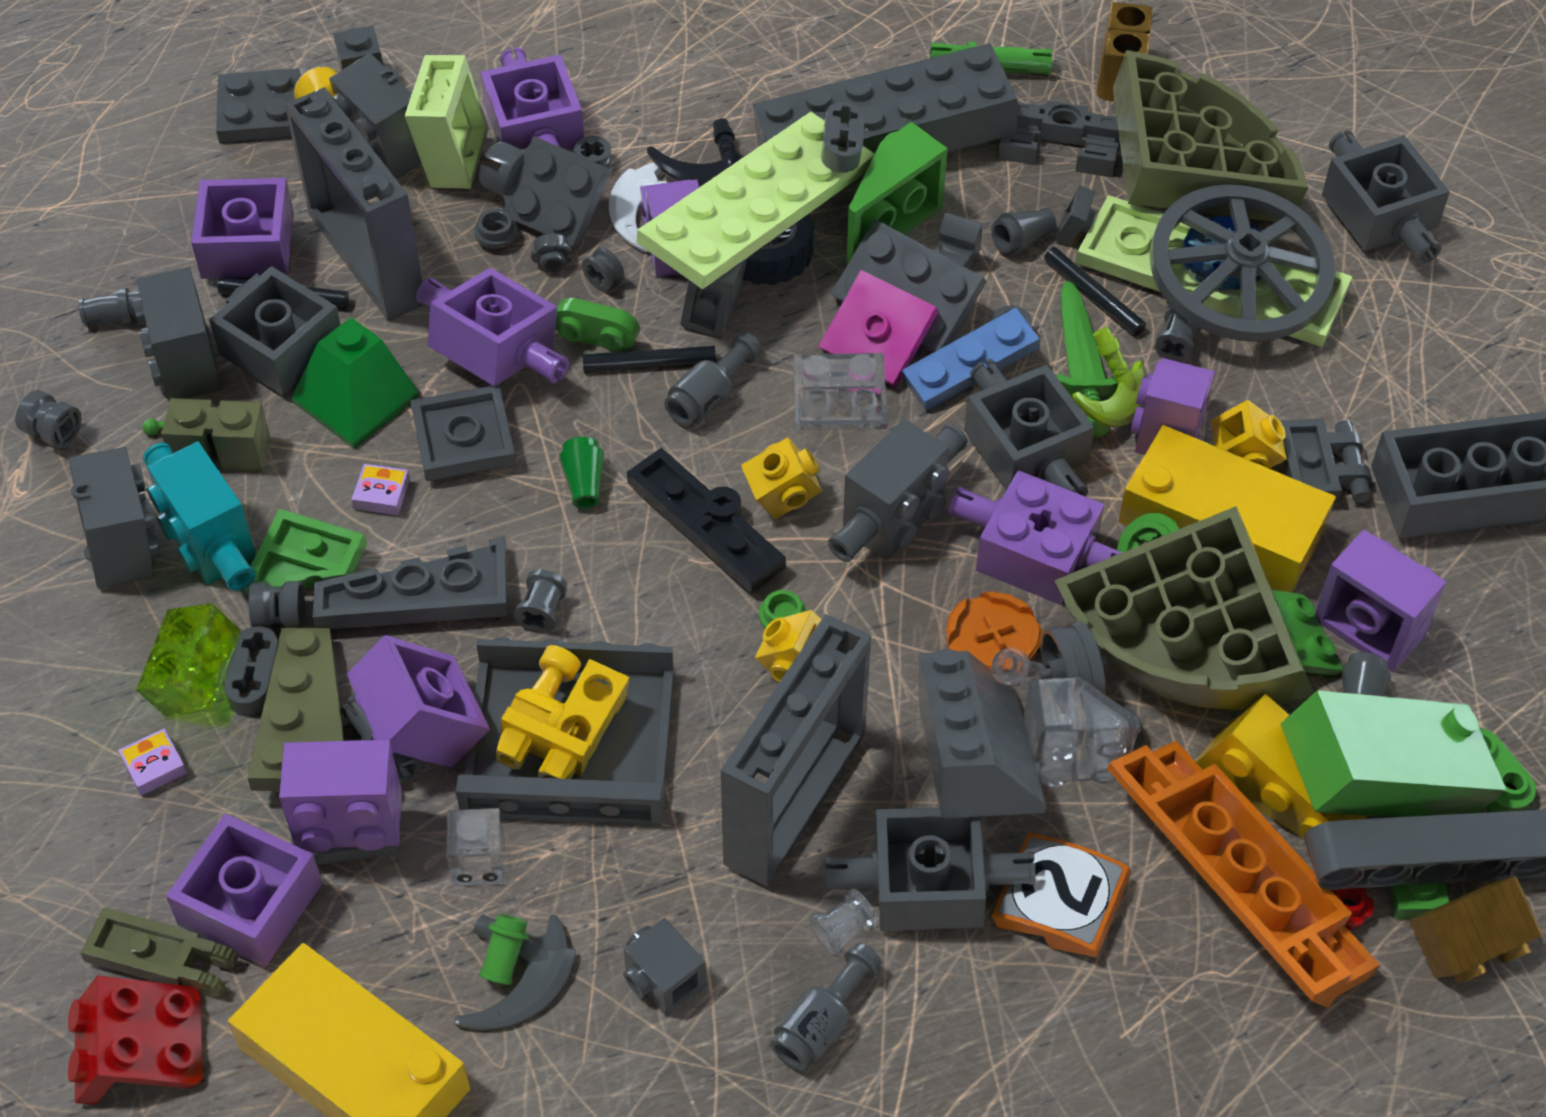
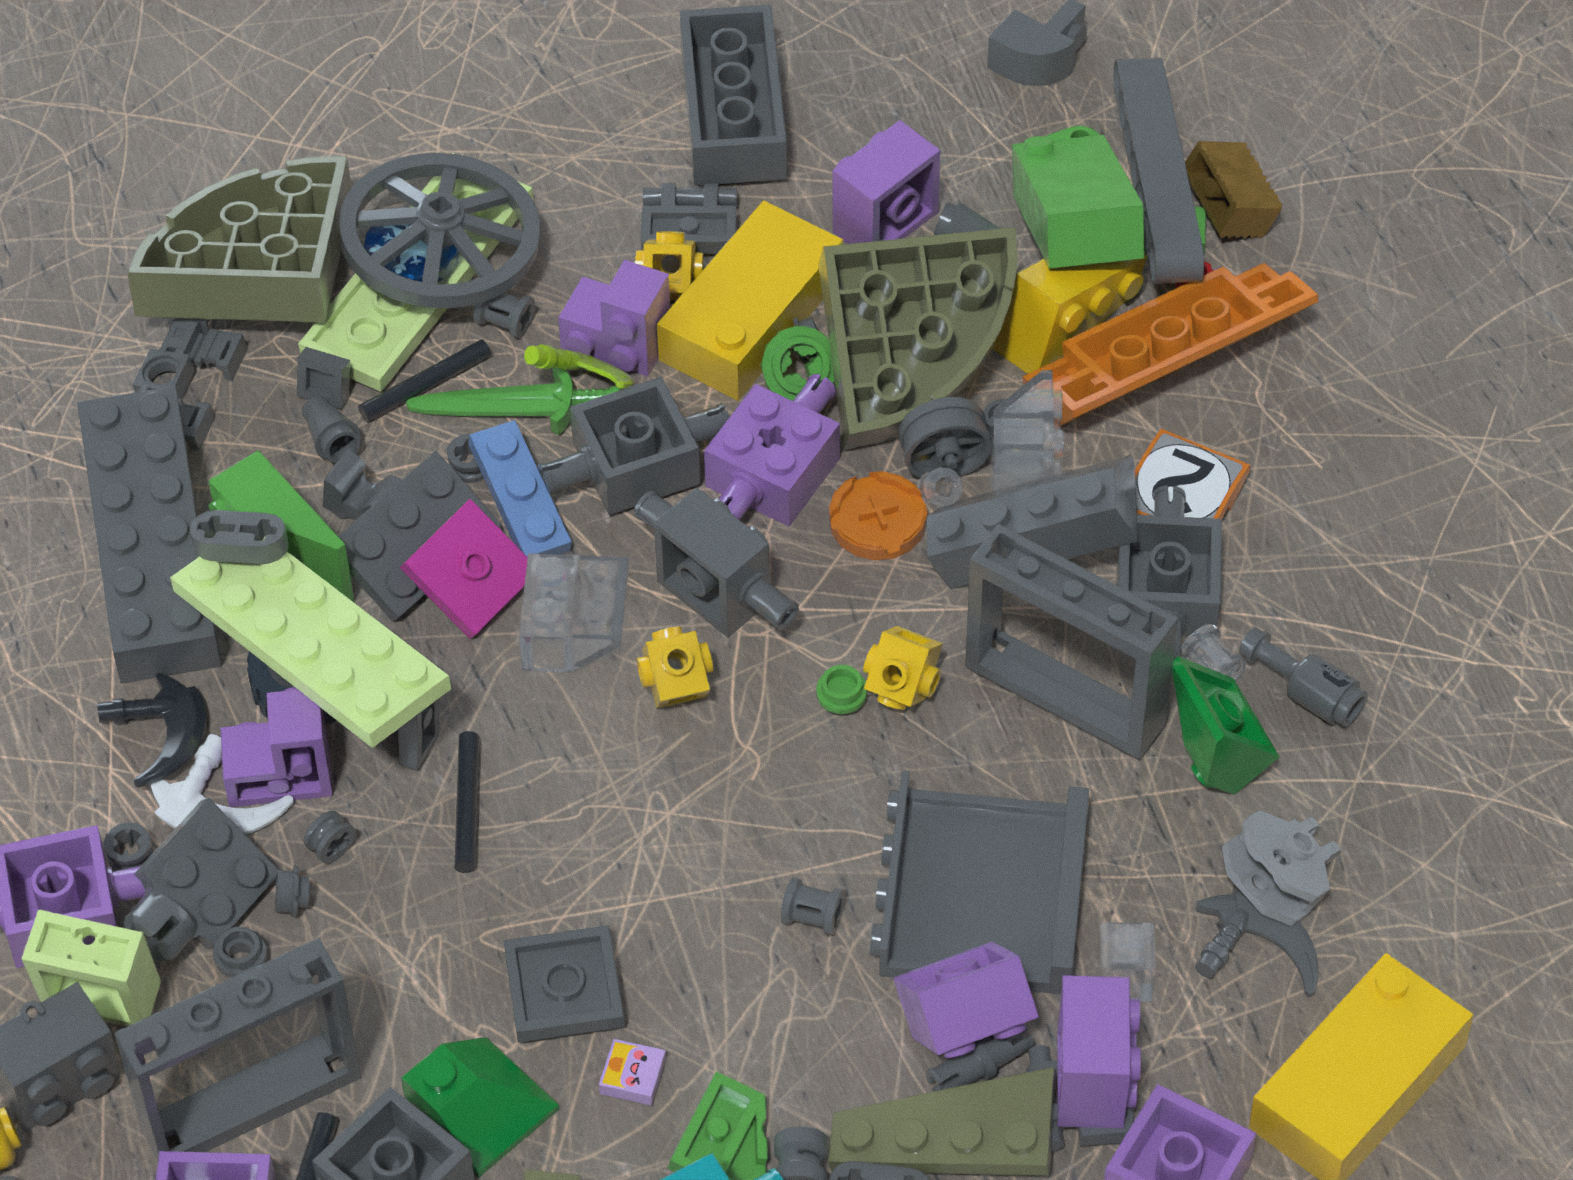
camera: 85 degrees left, 0 degrees up
(417, 592) = (786, 1018): dark grey wing -> none
(493, 327) = (426, 936): medium lavender brick -> none
(503, 948) = (1235, 932): bright green pin -> none
(556, 730) = (992, 870): yellow hips -> none
(582, 467) = (634, 864): green cone -> none
(590, 984) = (1283, 865): none -> light grey hinge
(596, 324) = (414, 854): bright green plate -> none
(663, 966) = (1263, 789): dark grey brick -> none
(707, 519) = (711, 750): black hinge -> none
(709, 382) = (522, 737): dark grey piece -> none
(739, 906) = (1219, 728): none -> green slope
(1011, 58) = (42, 448): bright green pin -> none
(1127, 27) = (96, 305): pearl gold piece -> none
(1385, 194) = (345, 103): dark grey brick -> none

